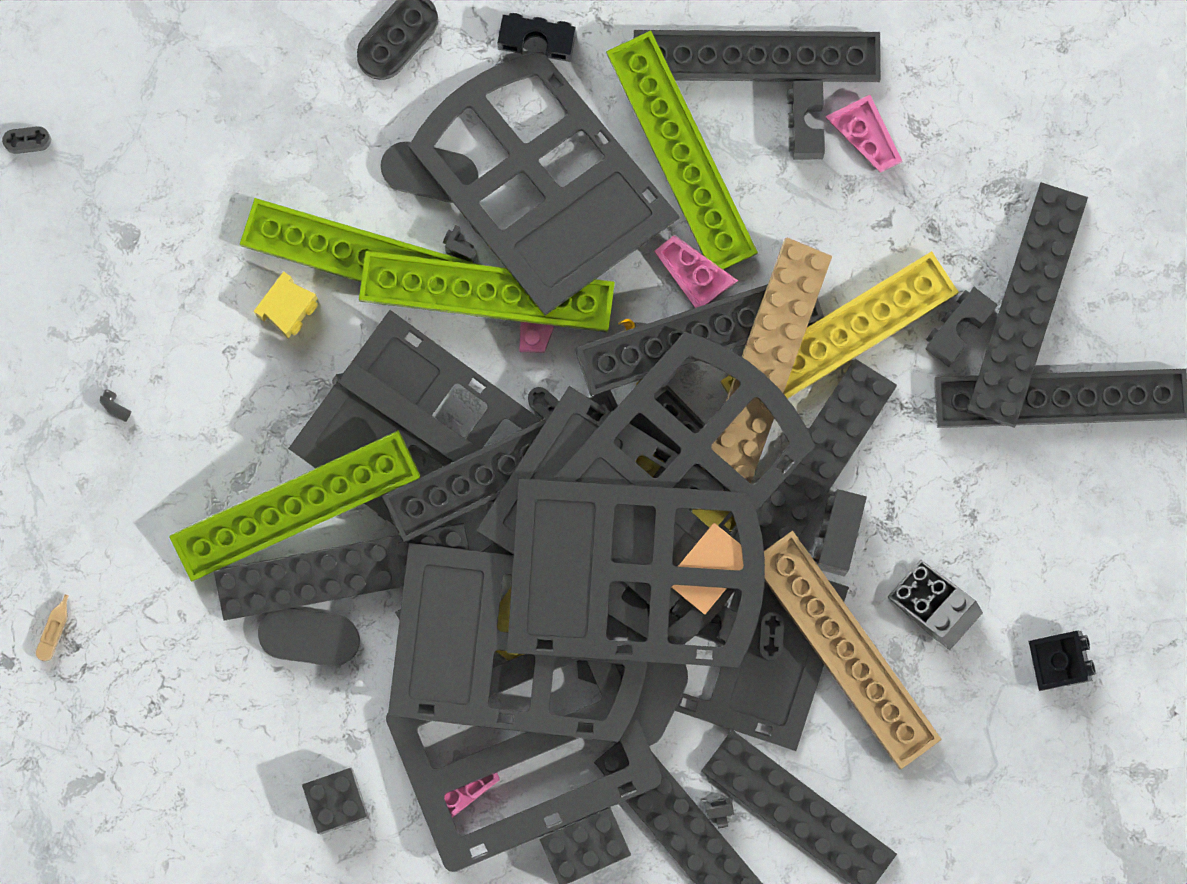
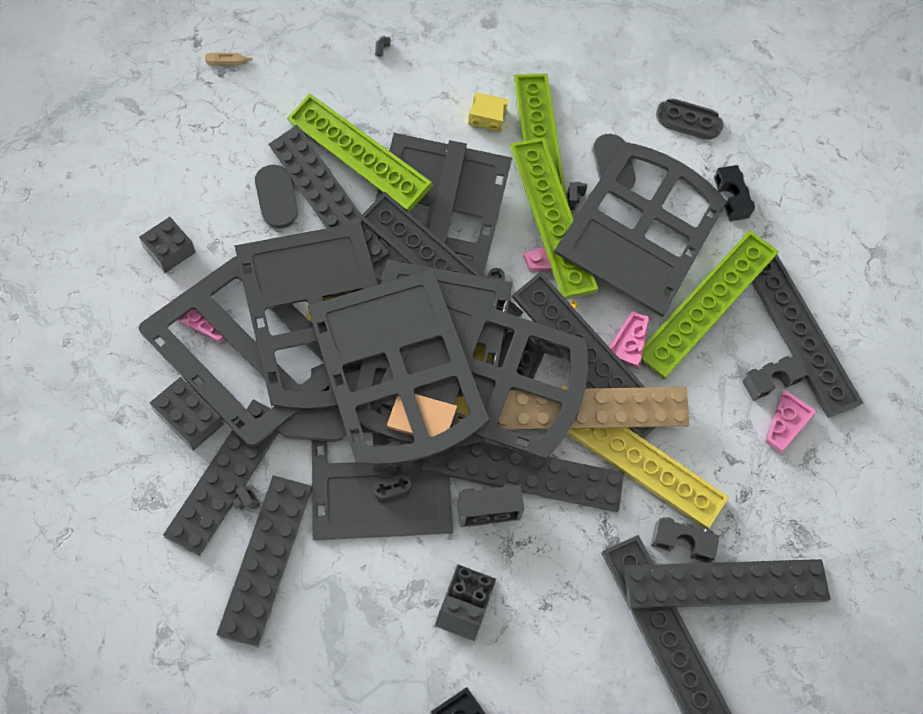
camera: 60 degrees right, 15 degrees down
(847, 651) = (400, 547): tan plate -> none

